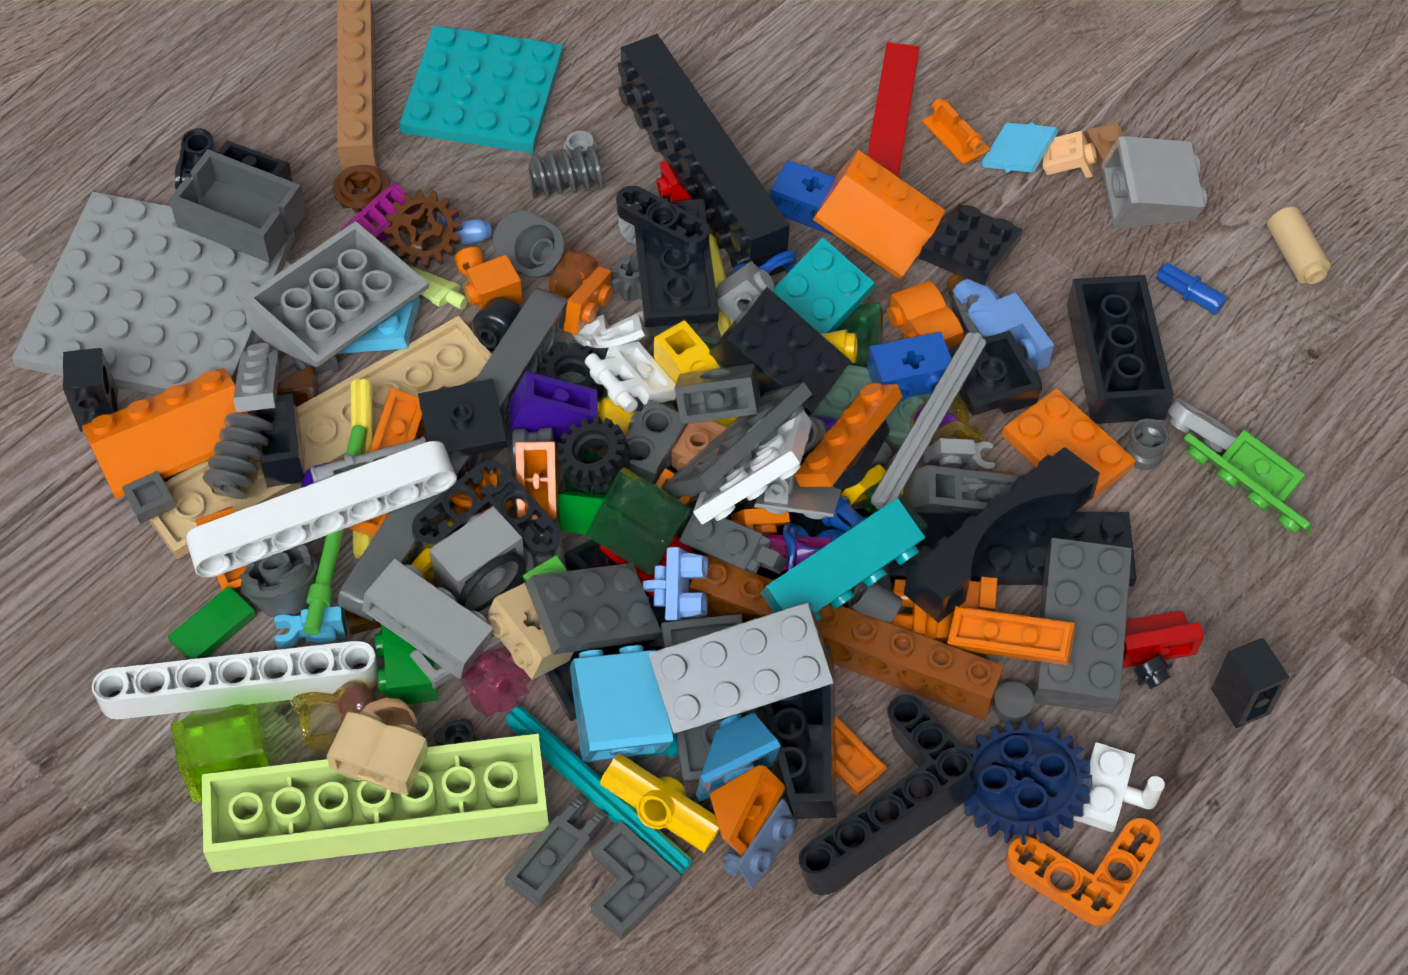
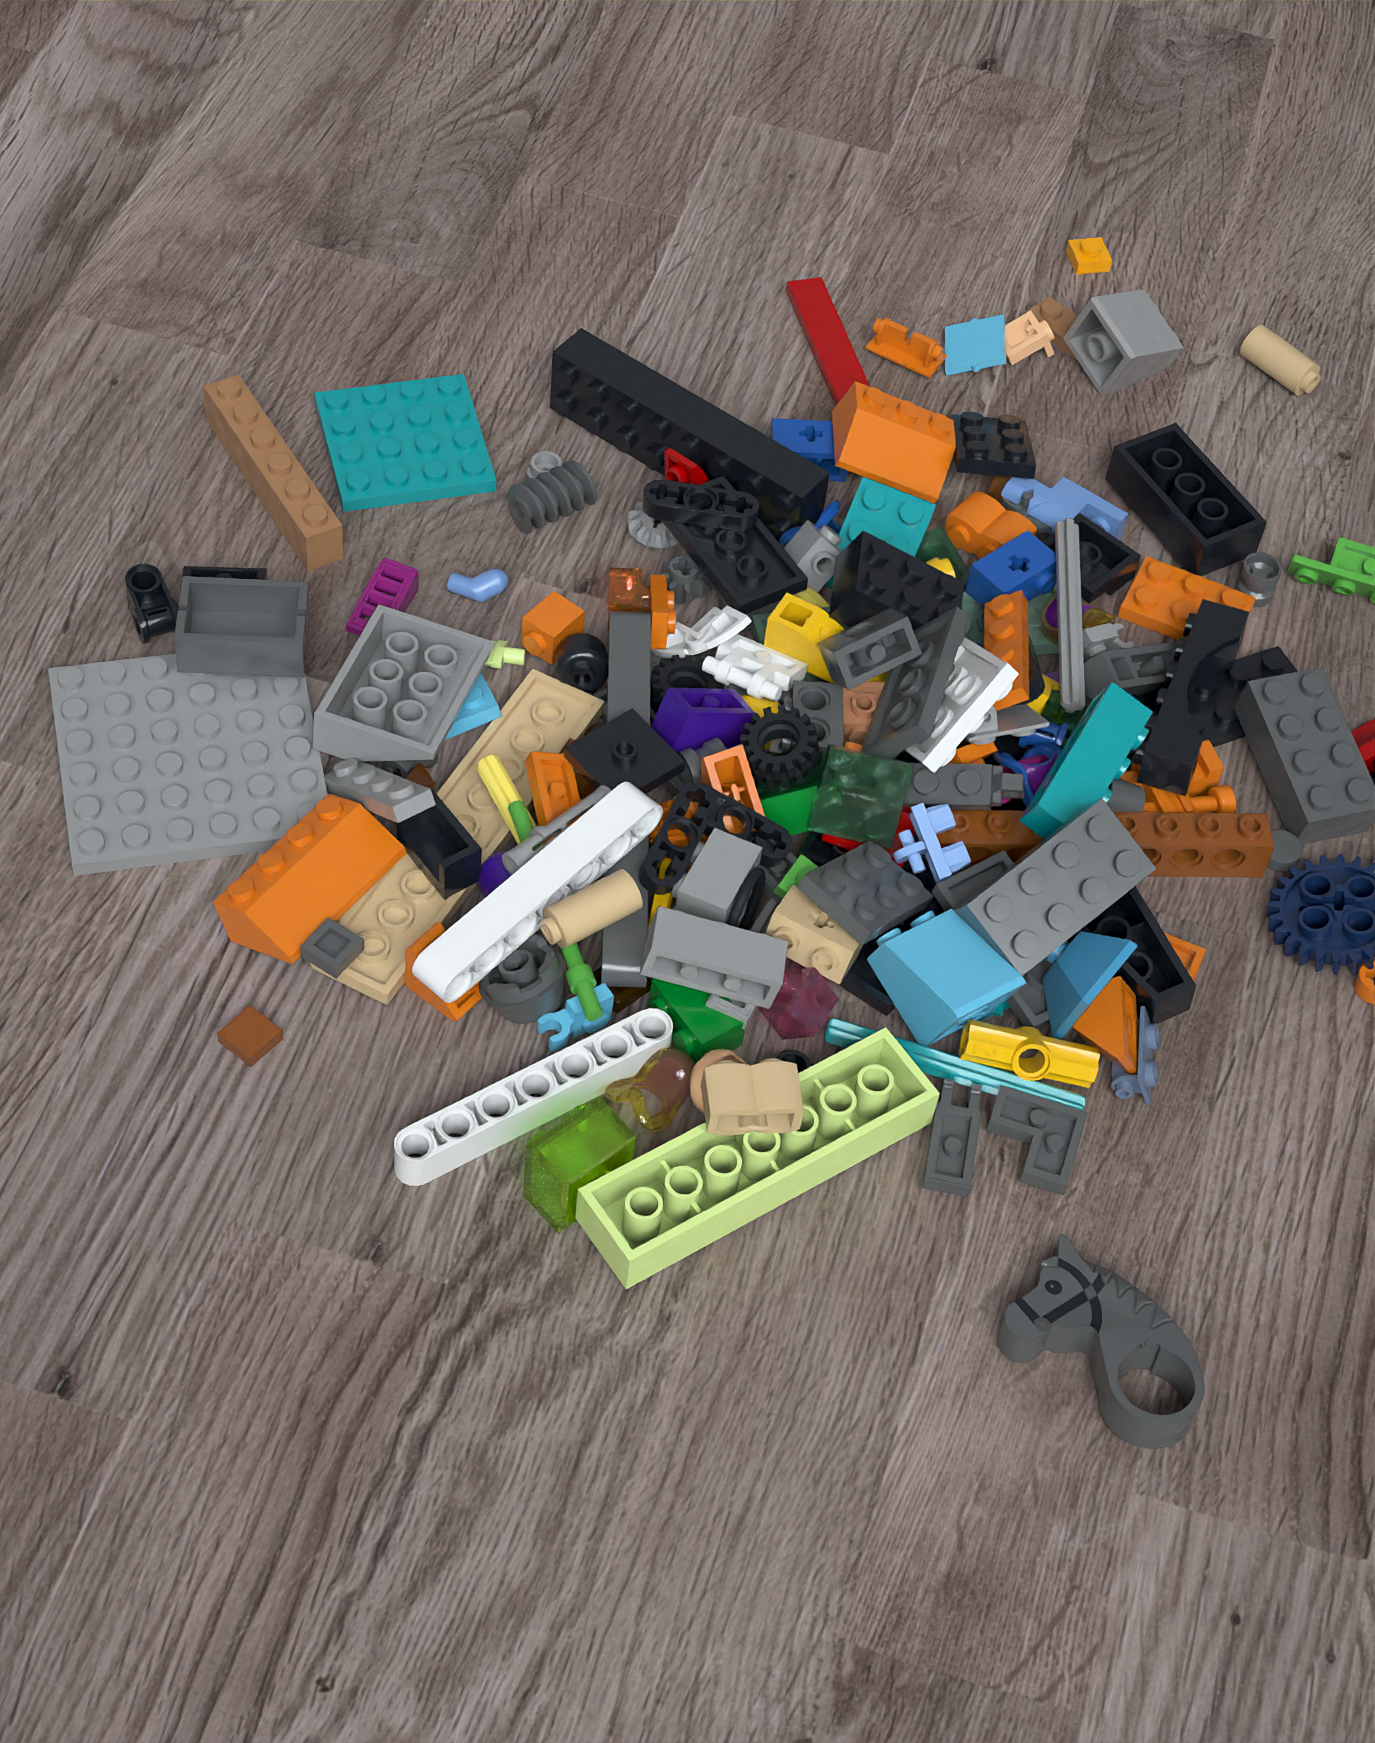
camera: 30 degrees left, 5 degrees down
(58, 545) = (250, 1035): none -> dark orange tile
(88, 385) = (195, 862): black brick -> none
(212, 625) = (468, 1055): green tile -> none
(234, 454) = (407, 872): dark grey piece -> none
(349, 540) = (591, 909): none -> tan brick
(359, 177) = (332, 567): reddish brown gear -> none
(420, 243) = (454, 582): reddish brown gear -> none
(468, 258) = (505, 613): orange hinge -> none
(529, 243) = (568, 569): dark grey piece -> none
(897, 802) = (1258, 920): black beam -> none
(1012, 635) = (1262, 782): orange tile -> none
(1180, 95) = (1088, 255): none -> light orange plate
(1188, 417) = (1281, 543): light grey plate -> none
(1191, 288) = (1210, 428): blue axle -> none

